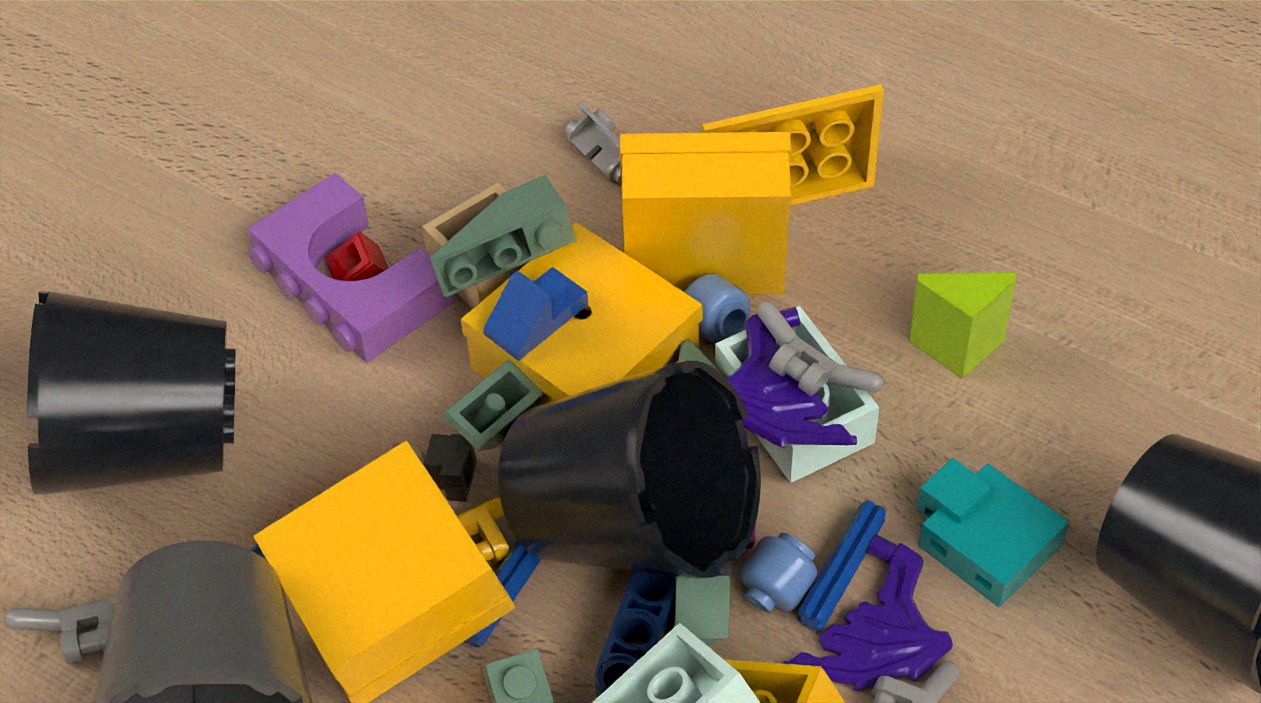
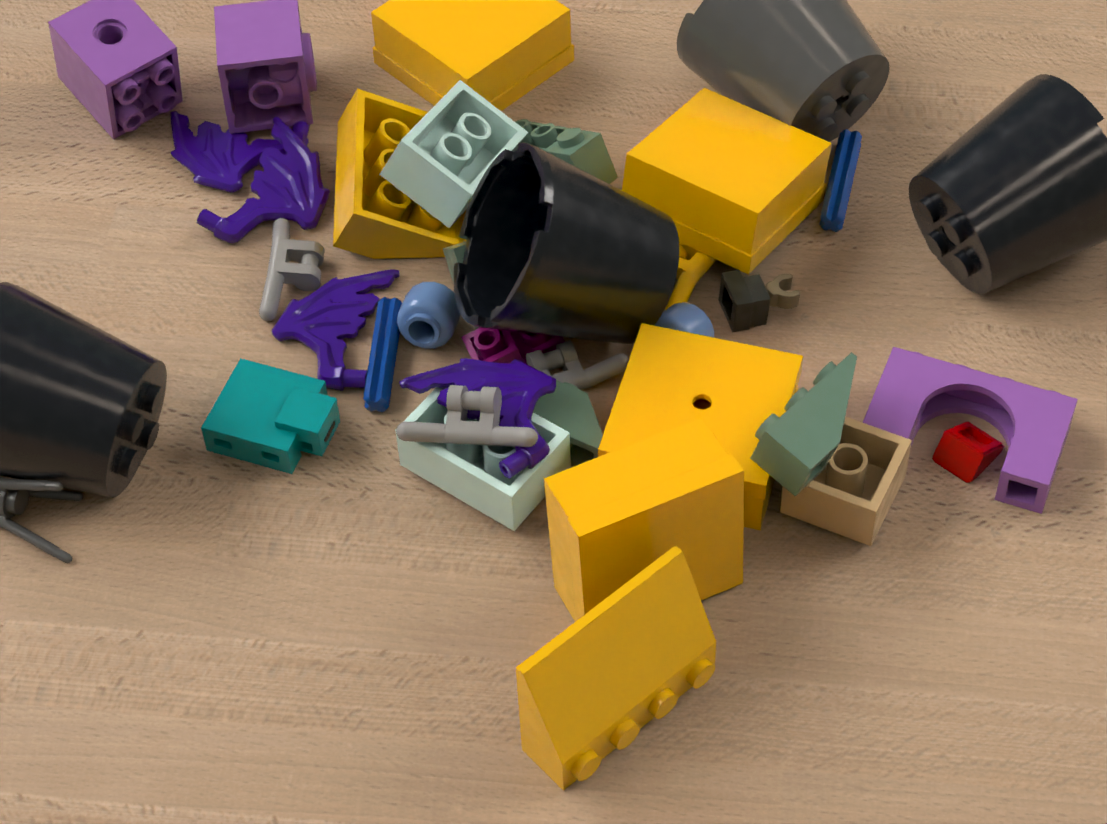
camera: 155 degrees right, 0 degrees up
(70, 623) = (933, 110): light grey piece -> none
(493, 406) = (733, 307): sand green slope -> none
(533, 310) = (735, 375): blue slope -> none
(591, 134) = (820, 666): light grey hinge -> none
(961, 316) = (358, 567): lime slope -> none

